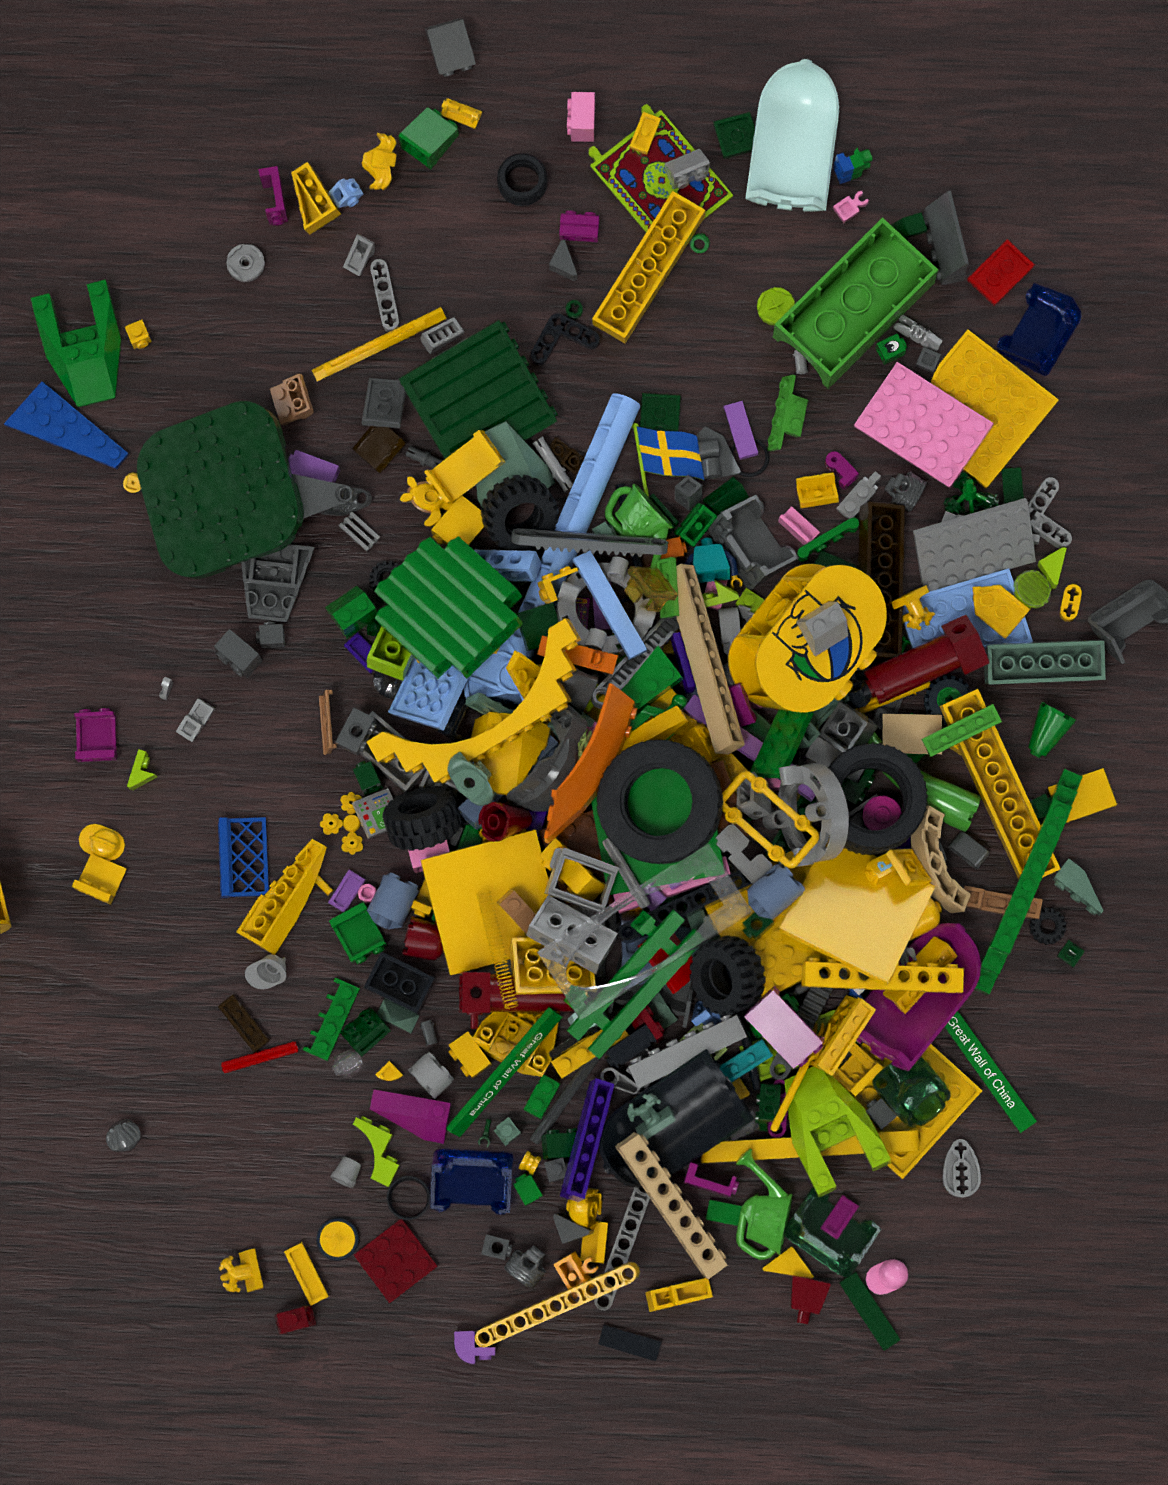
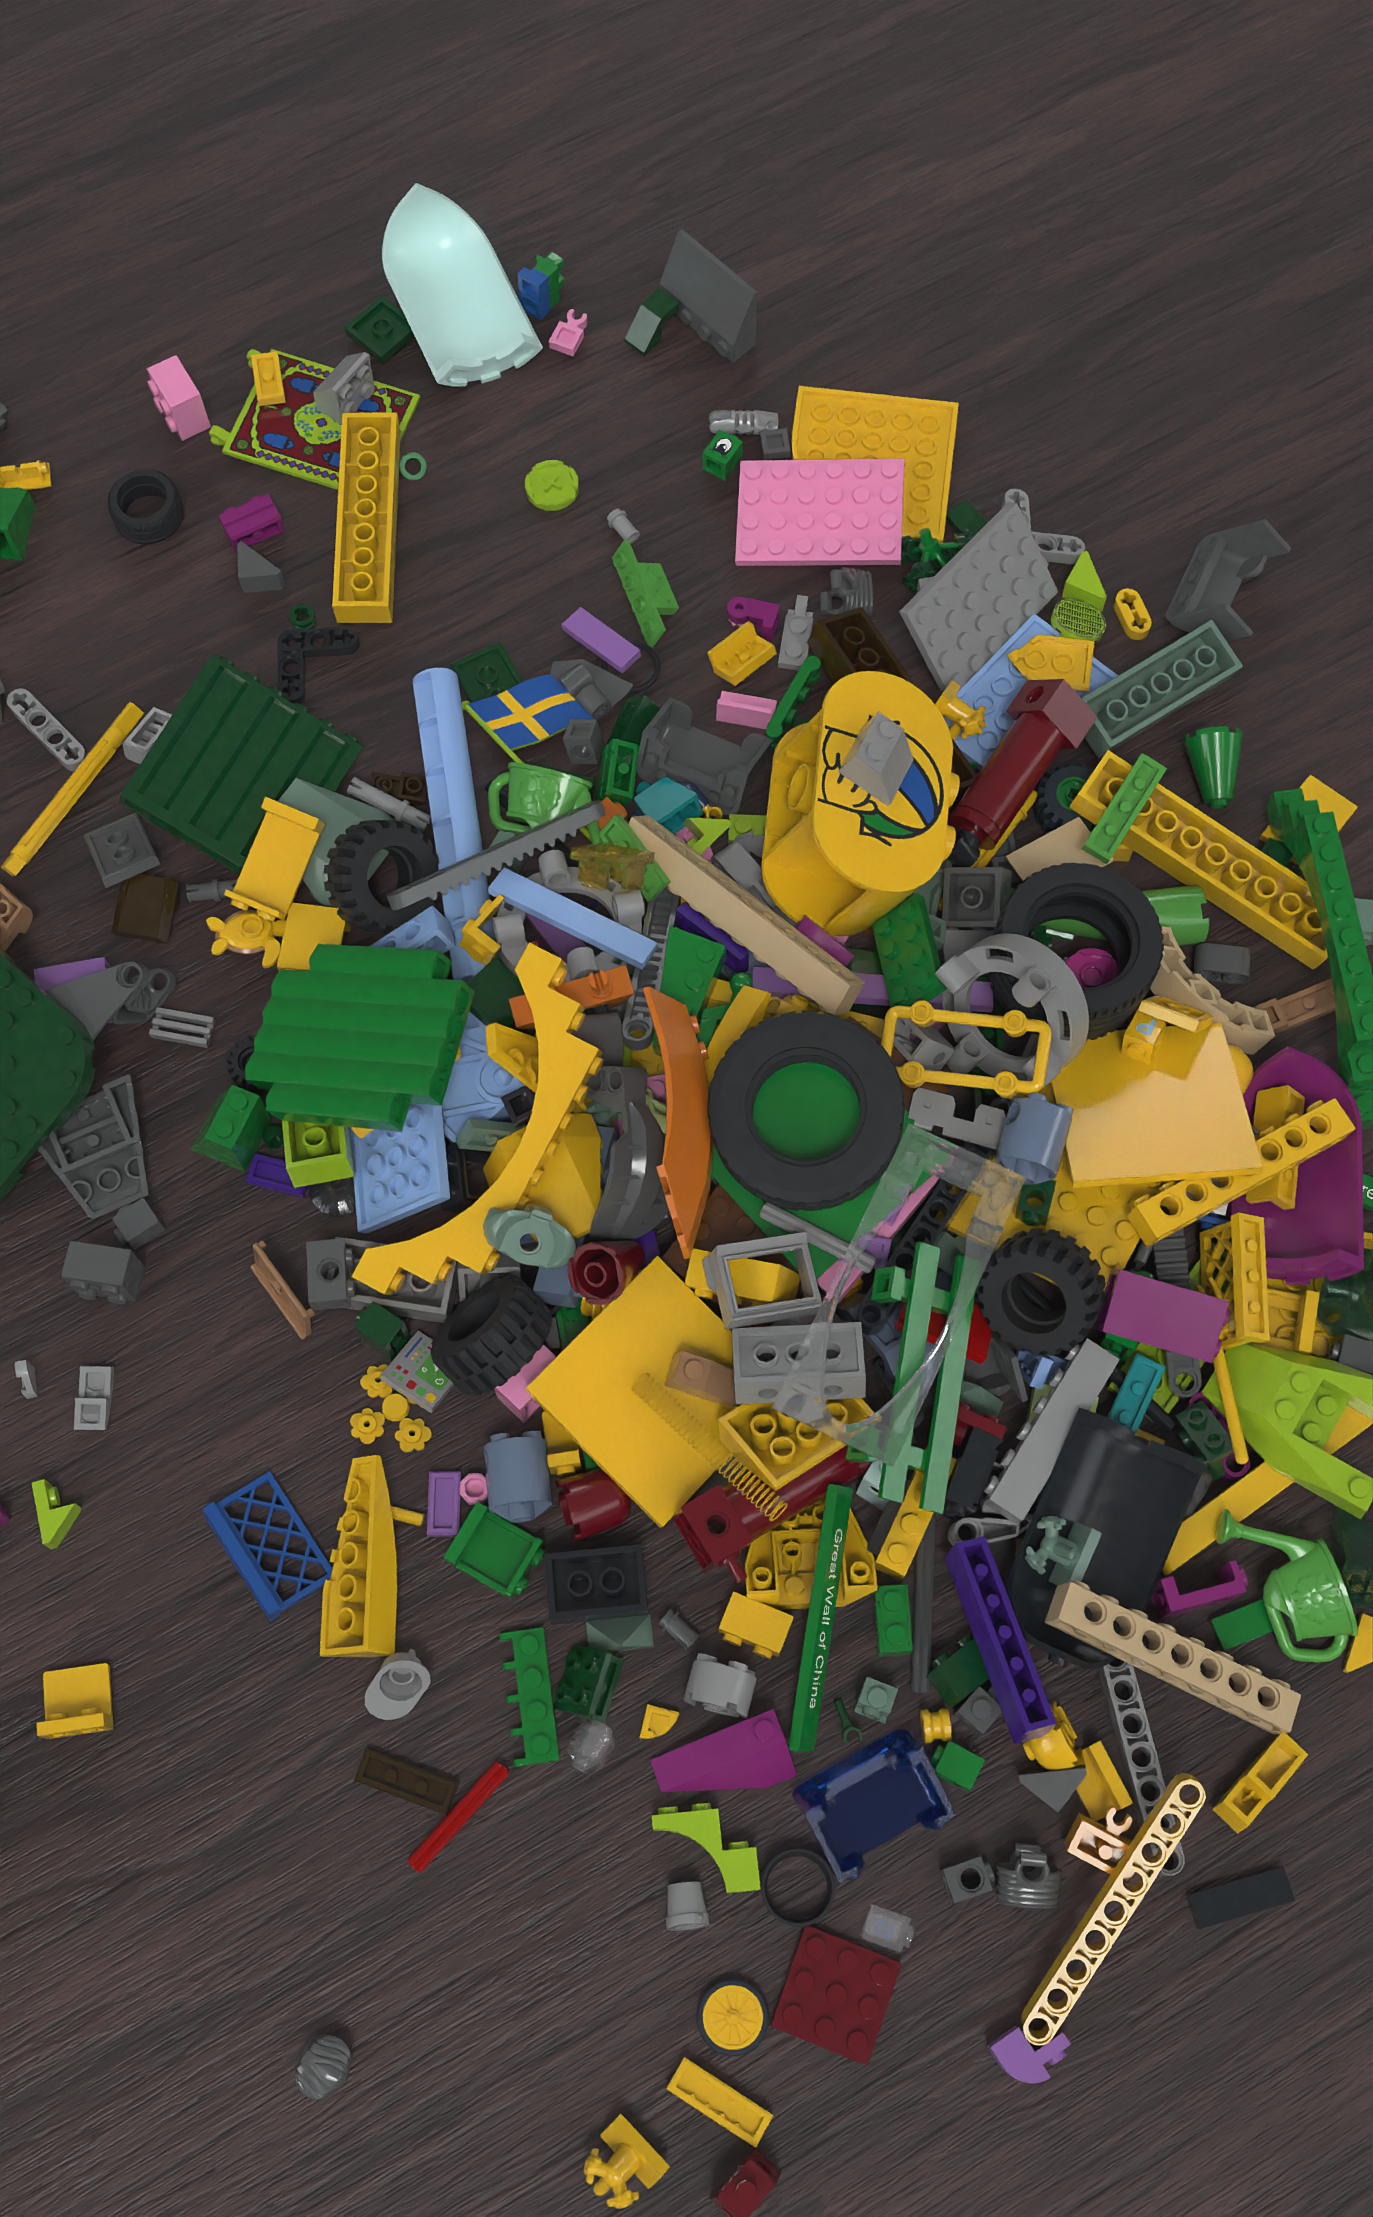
camera: 35 degrees left, 10 degrees down
(101, 842) = (50, 1647): yellow piece -> none
(440, 1245) = (887, 1929): none -> clear brick
(511, 700) = (519, 1105): none -> black slope
(856, 301) = (648, 416): bright green piece -> none
(1000, 272) = (793, 312): red tile -> none
(1042, 330) = (884, 339): clear blue windscreen -> none

